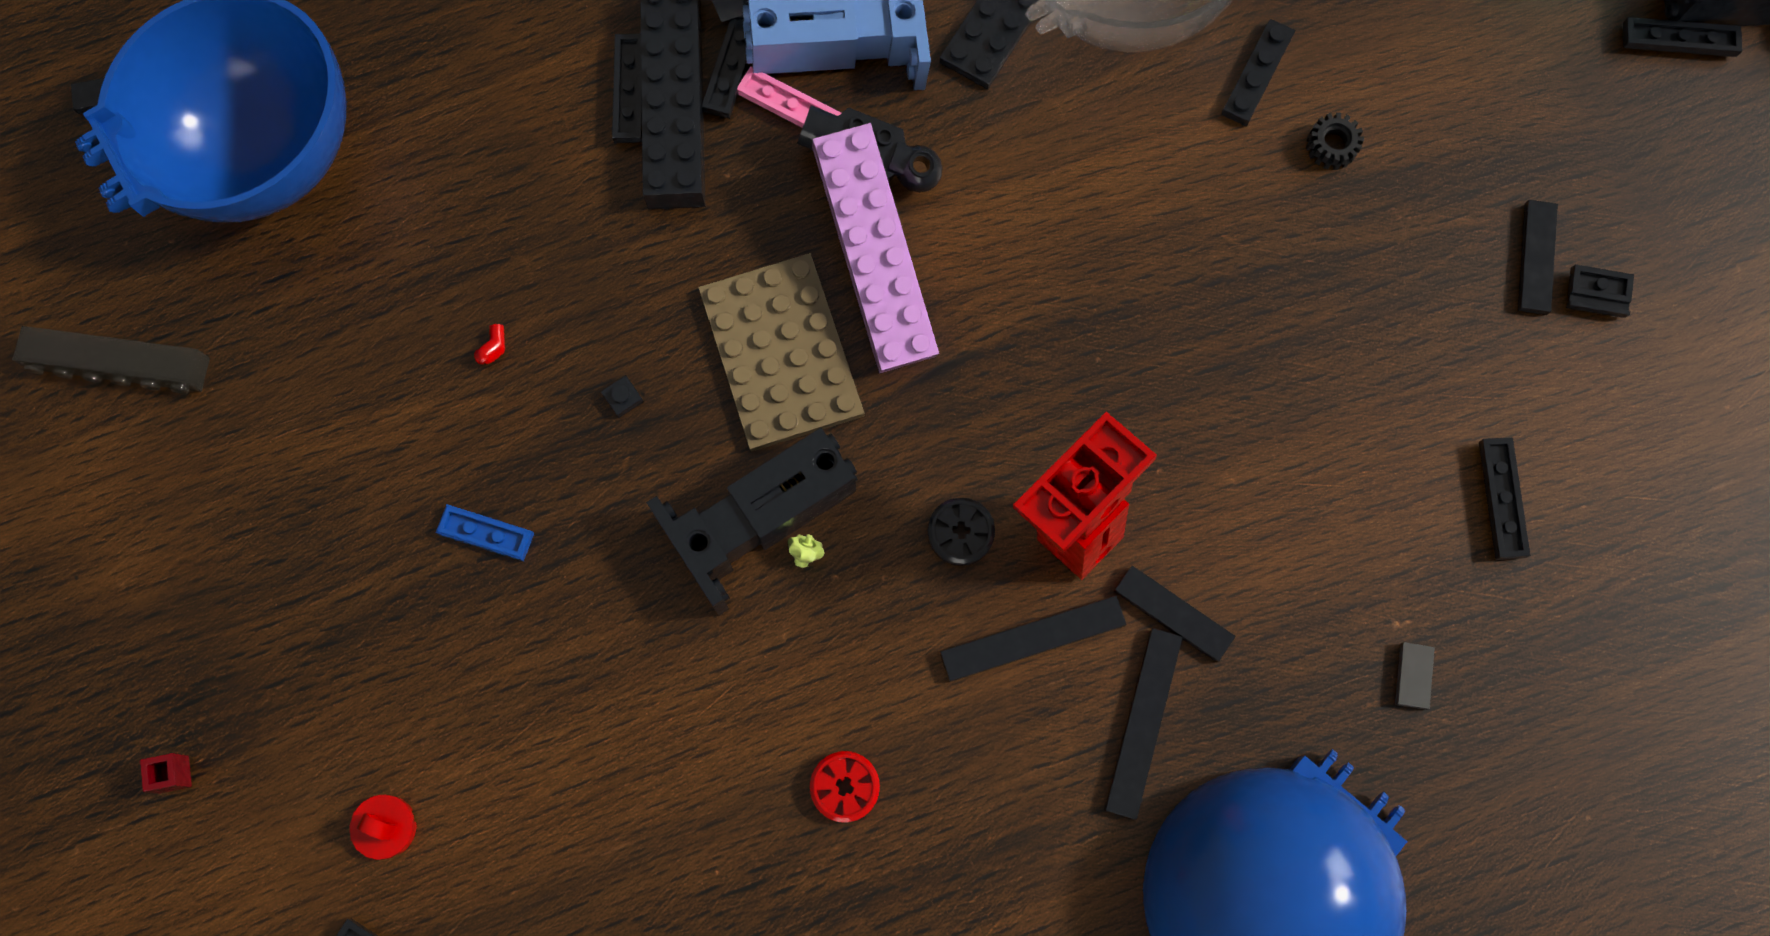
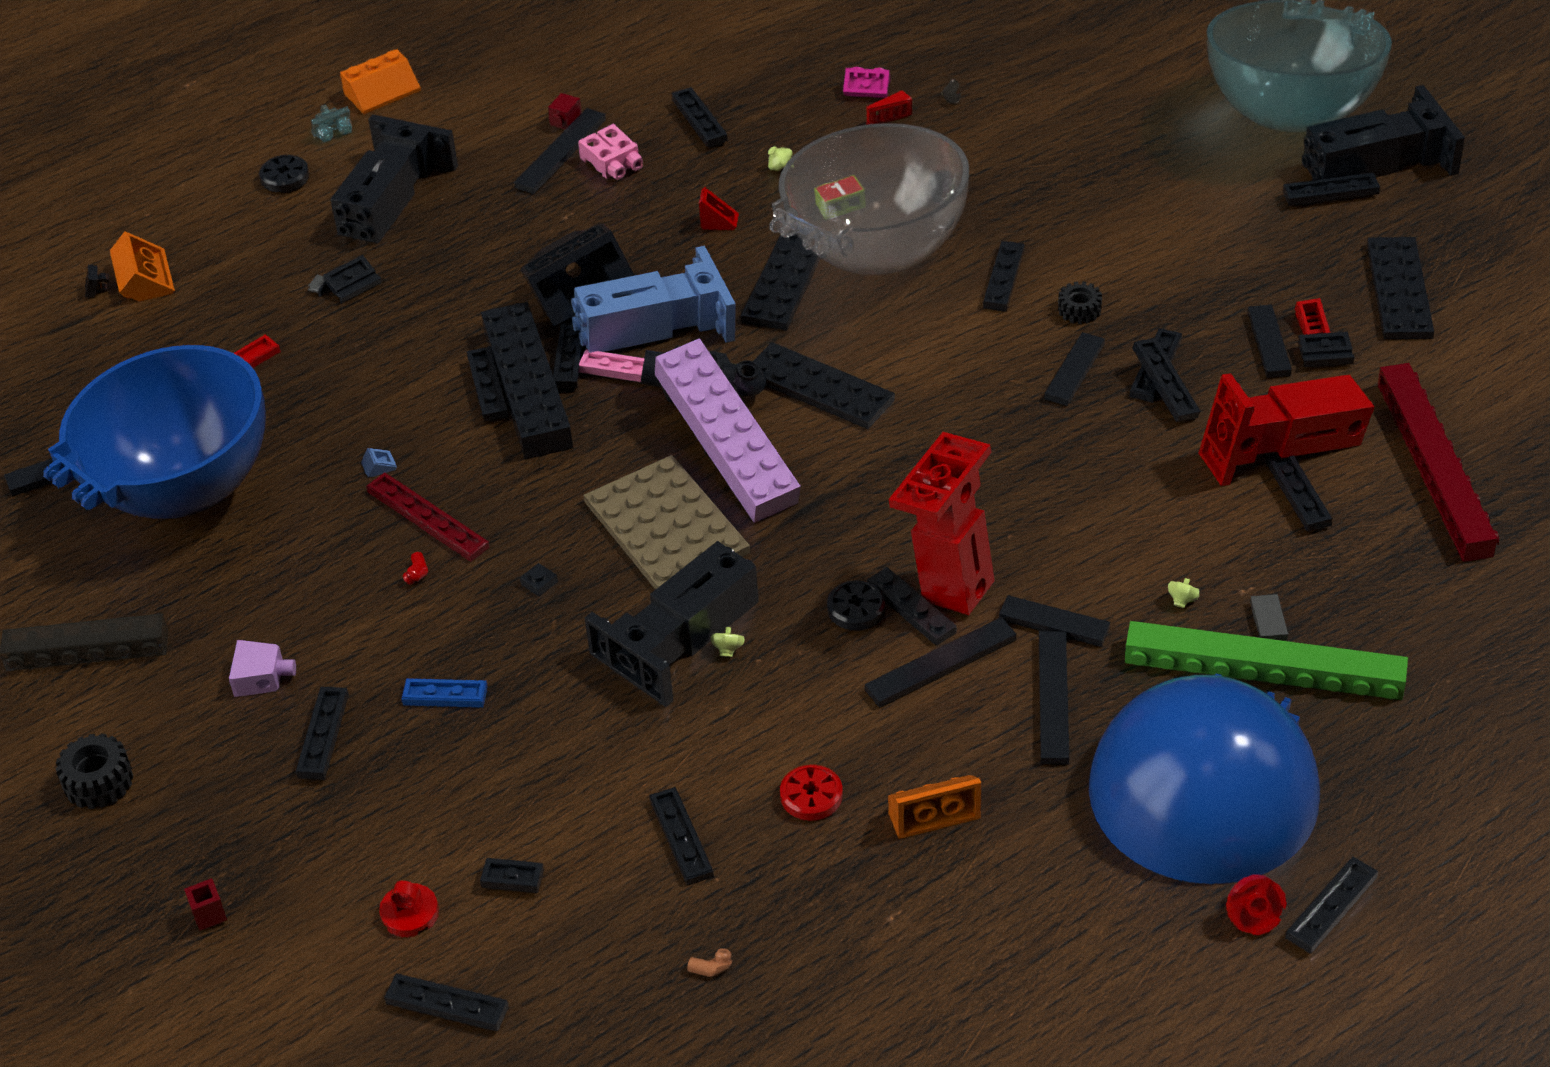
camera: 10 degrees left, 30 degrees down
(66, 538) = (98, 787): none -> black tyre
(289, 448) = (258, 668): none -> lavender torso
(340, 558) = (322, 733): none -> black plate
(484, 172) = (377, 462): none -> medium blue slope
(499, 814) = (512, 875): none -> black plate
(521, 269) = (428, 517): none -> dark red tile
(692, 805) = (681, 836): none -> black tile
(972, 847) = (935, 806): none -> orange slope
(1004, 188) = (823, 386): none -> black plate
(1022, 549) = (914, 607): none -> black plate
(1300, 240) = (1074, 369): none -> black tile
(1329, 617) = (1182, 593): none -> yellowish green piece
(1395, 259) = (1143, 386): none -> black tile
(1395, 743) = (1266, 660): none -> bright green brick
(1400, 293) = (1166, 379): none -> black plate
(1519, 412) = (1287, 420): none -> red brick
(1609, 236) = (1307, 307): none -> red slope
(1676, 500) = (1437, 463): none -> dark red brick
(1715, 214) = (1400, 288): none -> black plate

